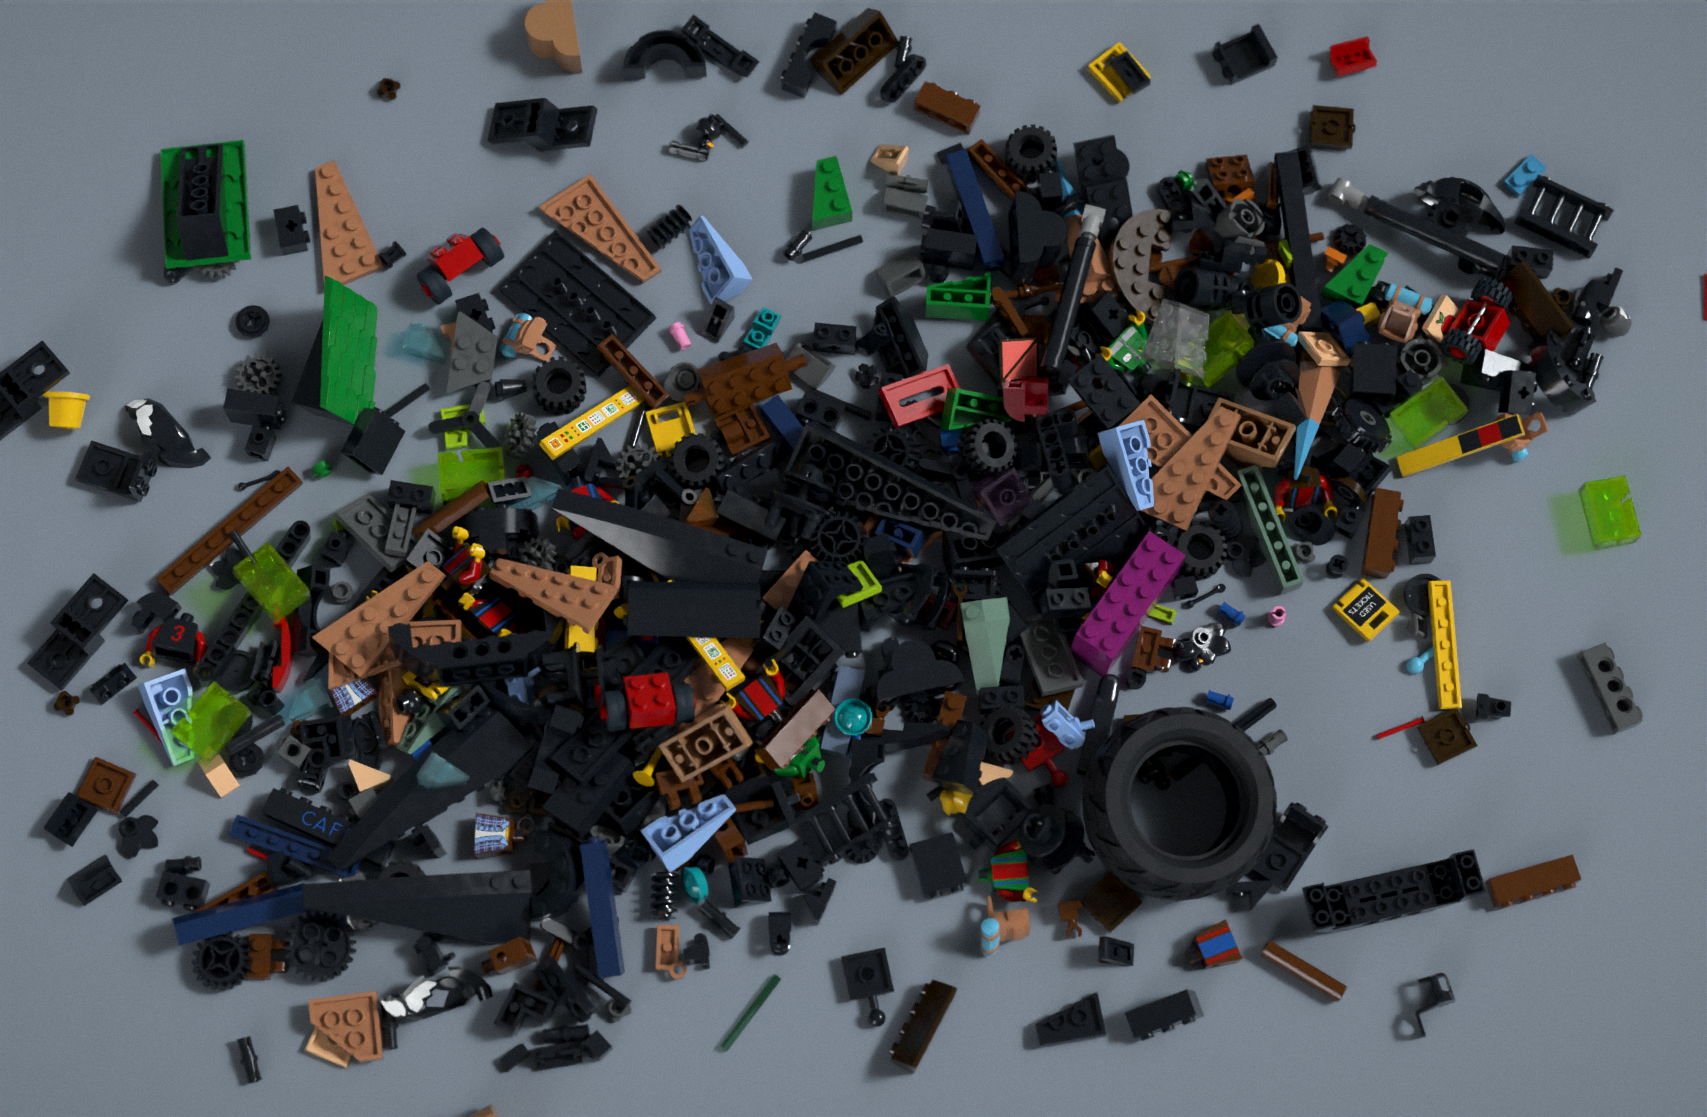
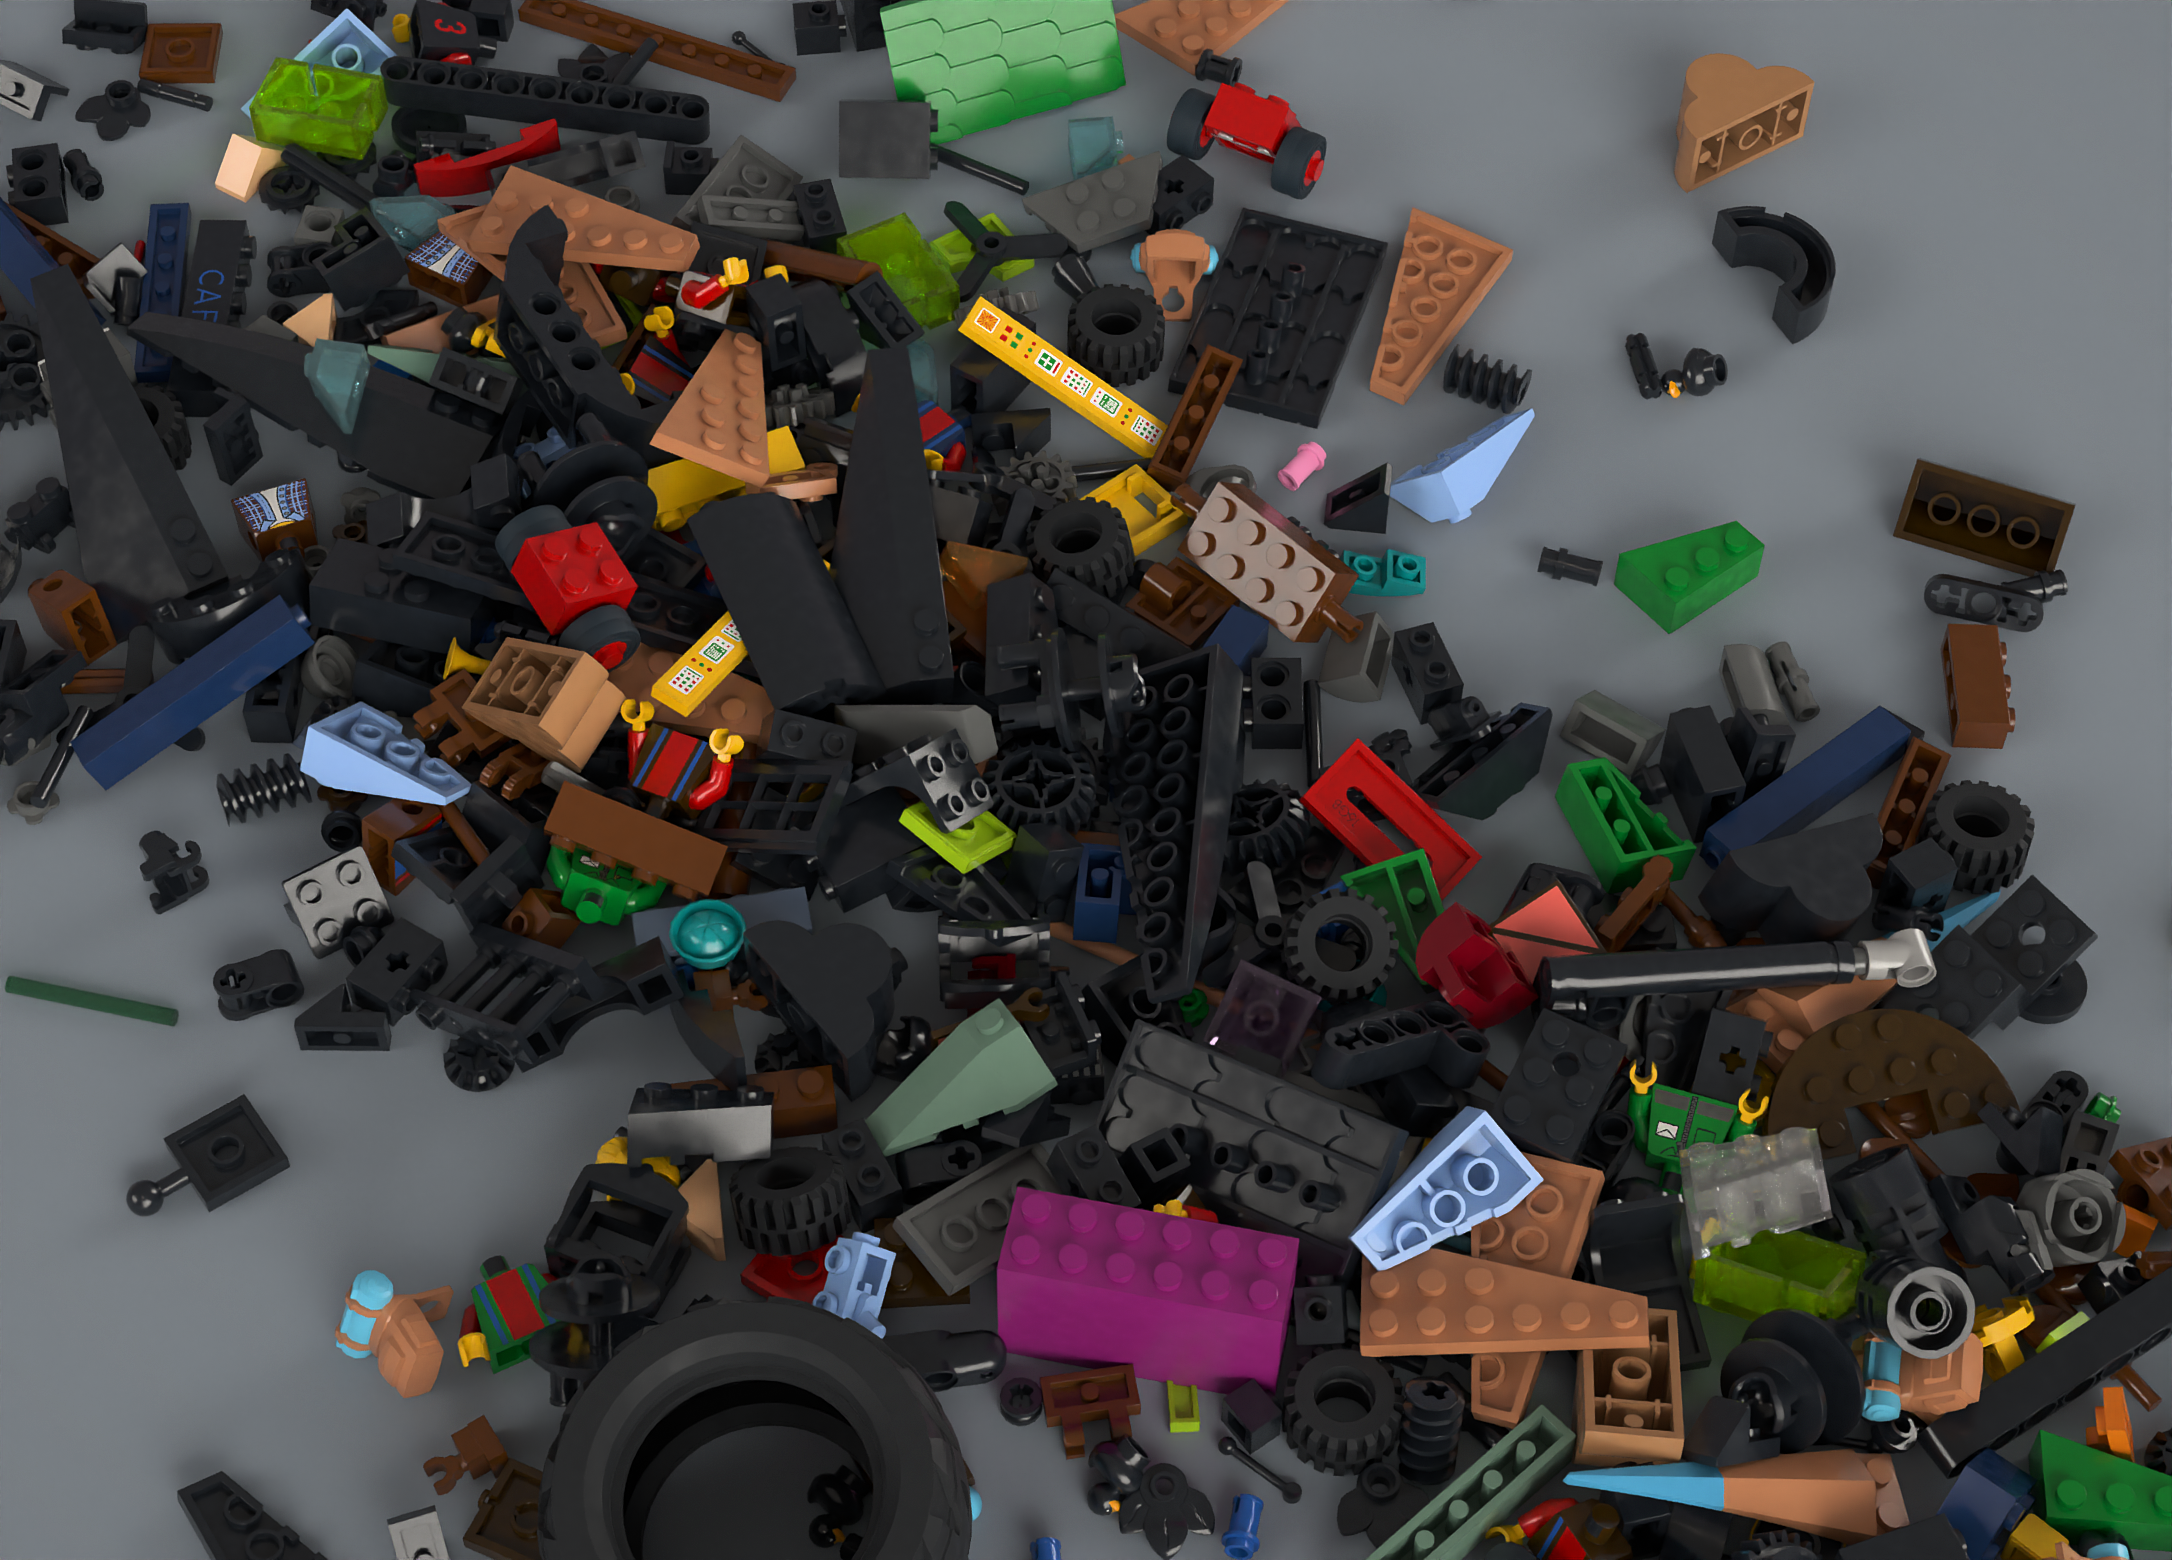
camera: 70 degrees right, 20 degrees down
(271, 582) = (574, 84): clear neon green piece -> none
(322, 469) = (814, 111): green plate -> none
(529, 473) = (942, 347): red hinge -> none
(542, 124) = (1554, 157): black bracket -> none
(668, 950) = (179, 823): nougat hinge -> none
(694, 884) = (297, 822): teal hat -> none
(718, 48) = (1854, 333): black slope -> none
(719, 919) = (250, 888): black pin -> none
(733, 132) = (1718, 410): black wheel -> none
(786, 580) = (893, 726): none -> dark grey piece
(818, 33) = (1881, 454): black arch -> none
(832, 248) = (1598, 620): black bar -> none
(890, 158) = (1821, 644): light nougat slope -> none
(902, 843) = (525, 1114): black beam -> none
(923, 1025) = (148, 1276): dark brown slope -> none
(938, 866) = (484, 1191): black brick -> none
(1323, 349) = (1903, 1475): light nougat tile -> none

